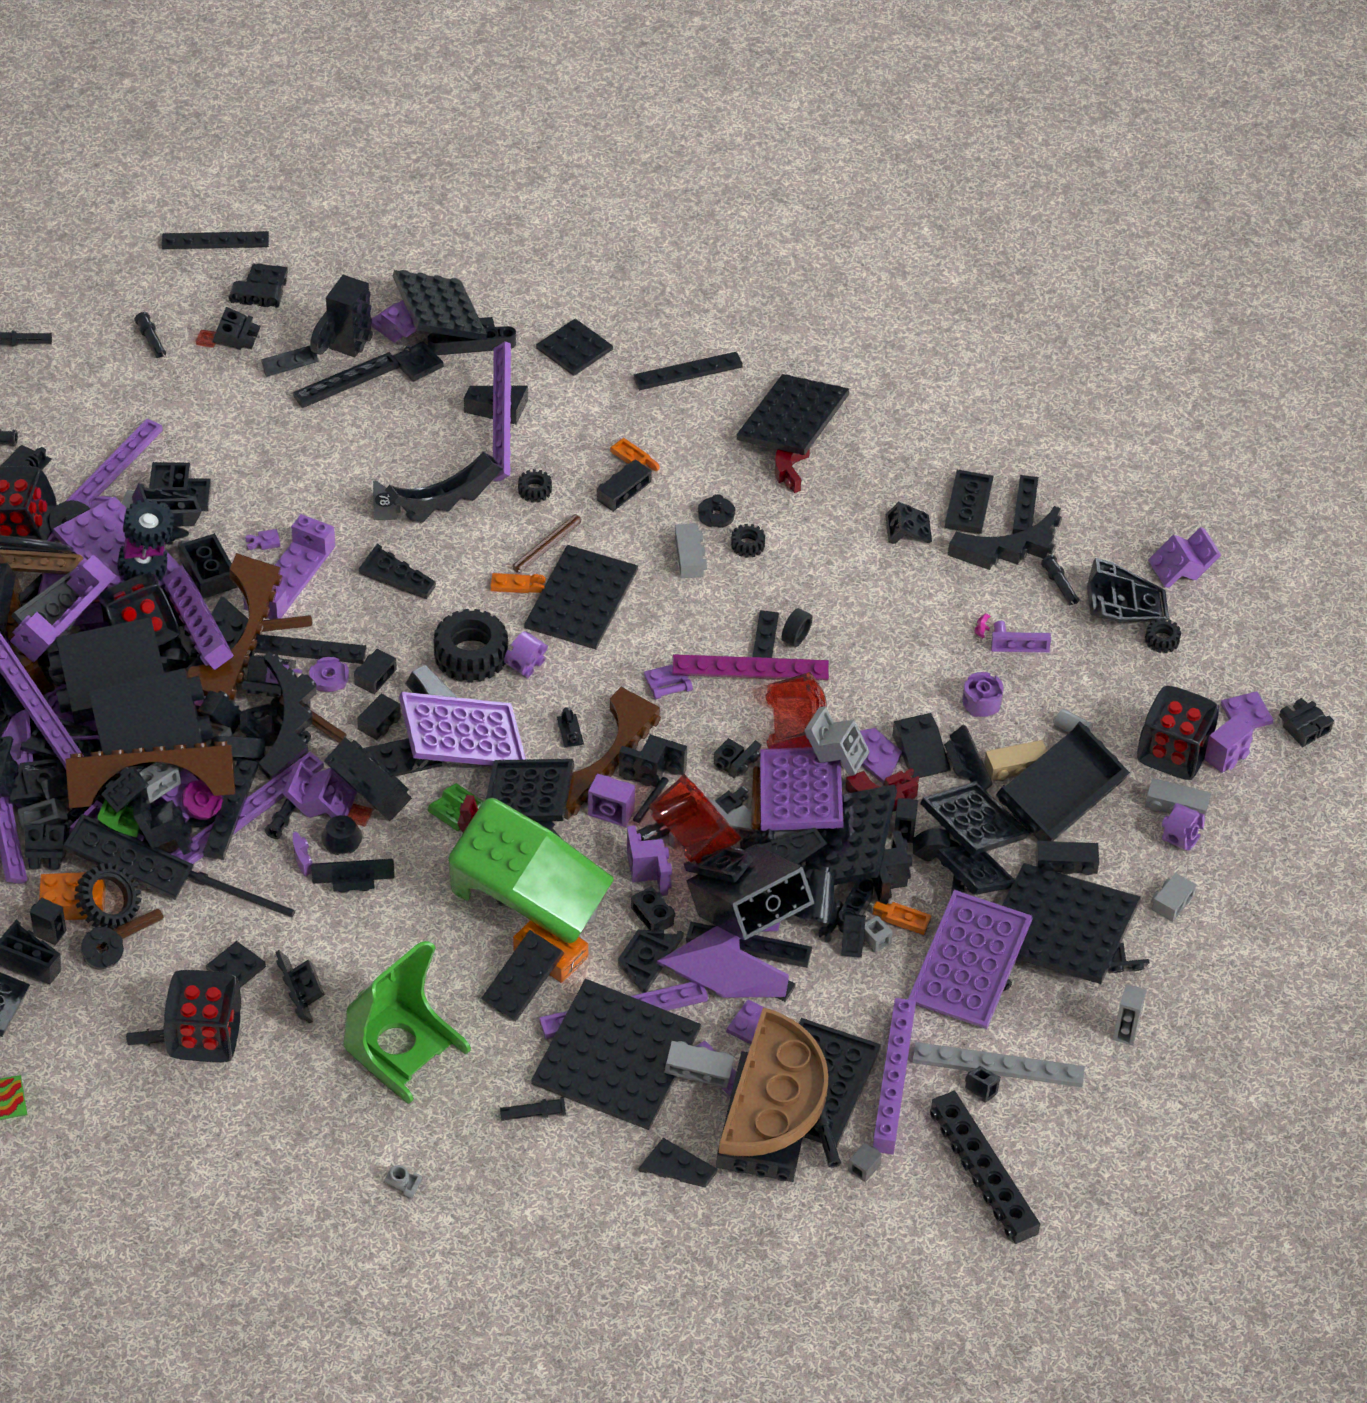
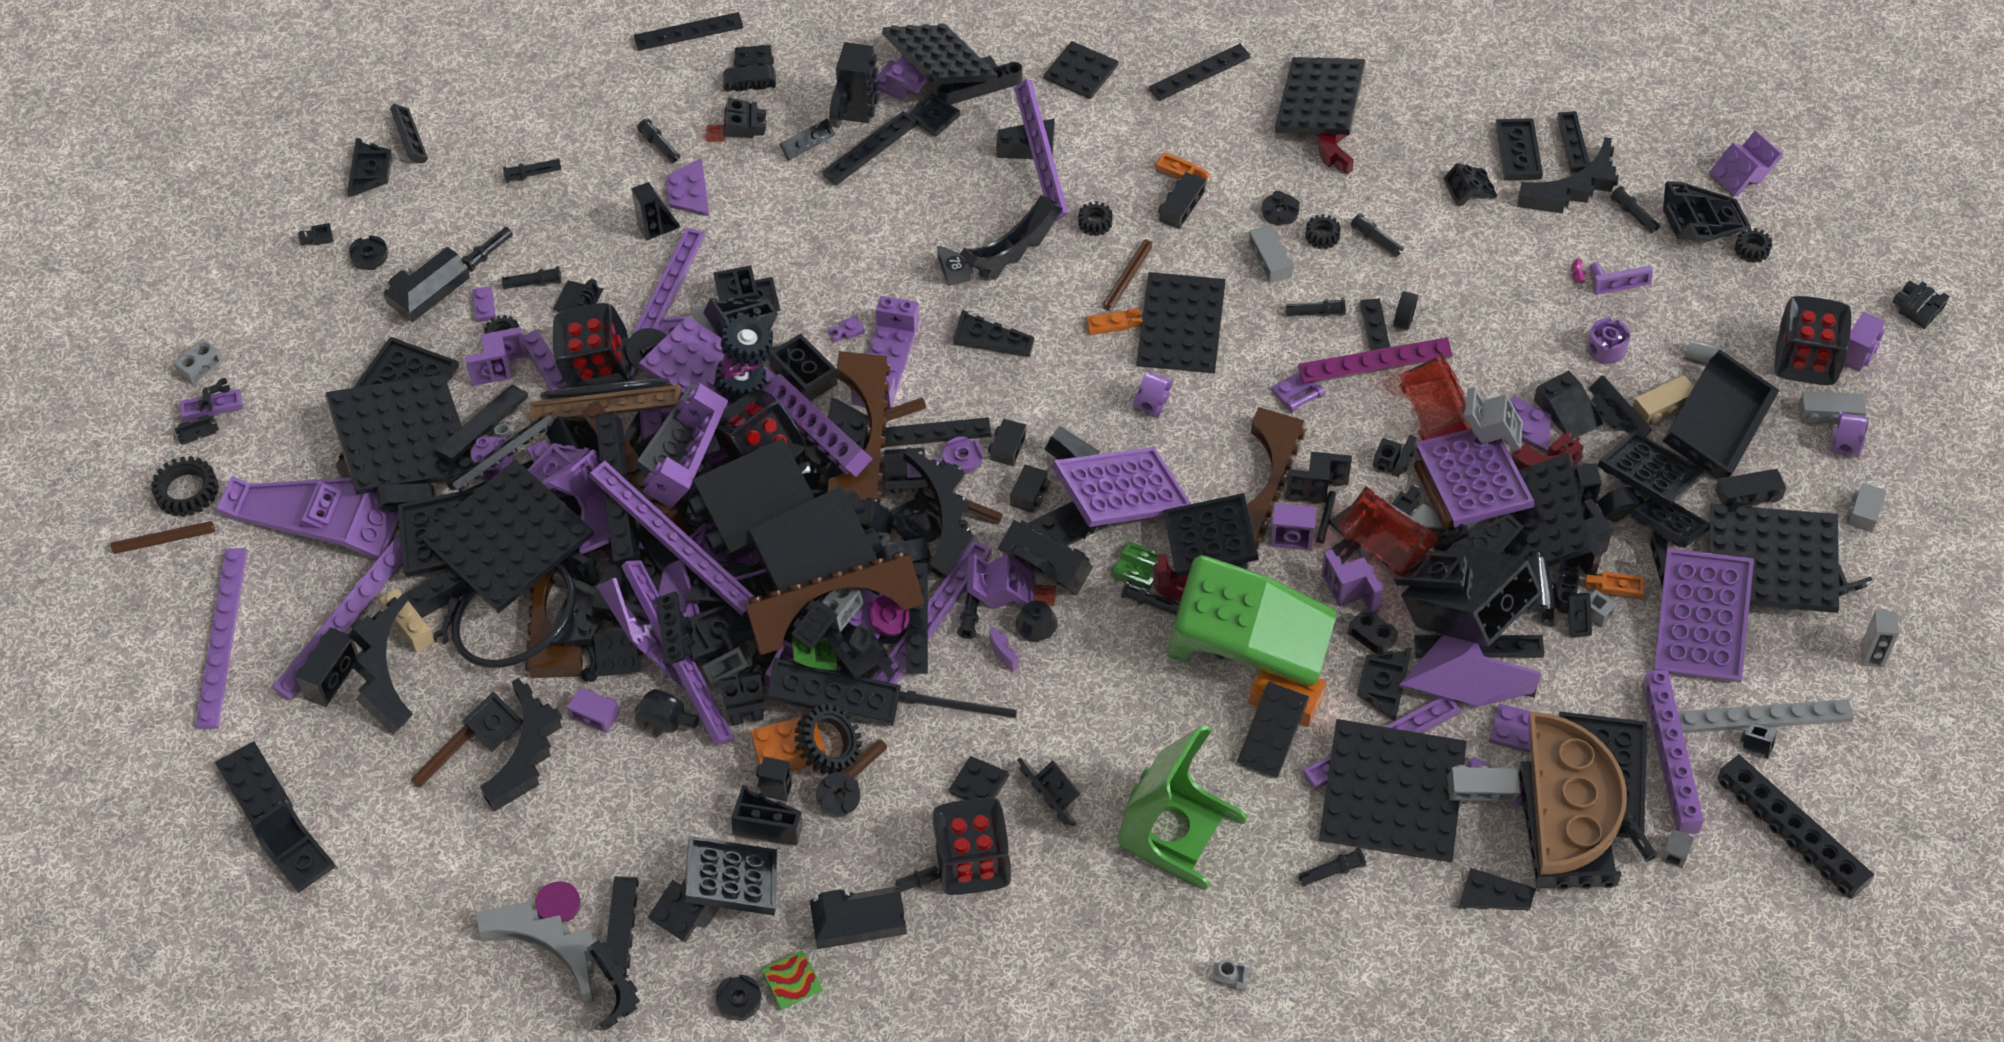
camera: 10 degrees left, 5 degrees up
(78, 1055) = (857, 917): none -> black brick
(118, 397) = (652, 213): none -> black wedge
(163, 383) = (688, 188): none -> medium lavender wing
(353, 874) = (1062, 660): black bracket -> none
(447, 832) = (1143, 596): none -> black pin
(470, 664) = (1095, 415): black tyre -> none
(569, 728) = (1220, 461): black hinge -> none
(723, 610) = (1326, 307): none -> black pin
(794, 548) = (1370, 230): none -> black pin
(1248, 708) = (1862, 300): medium lavender plate -> none

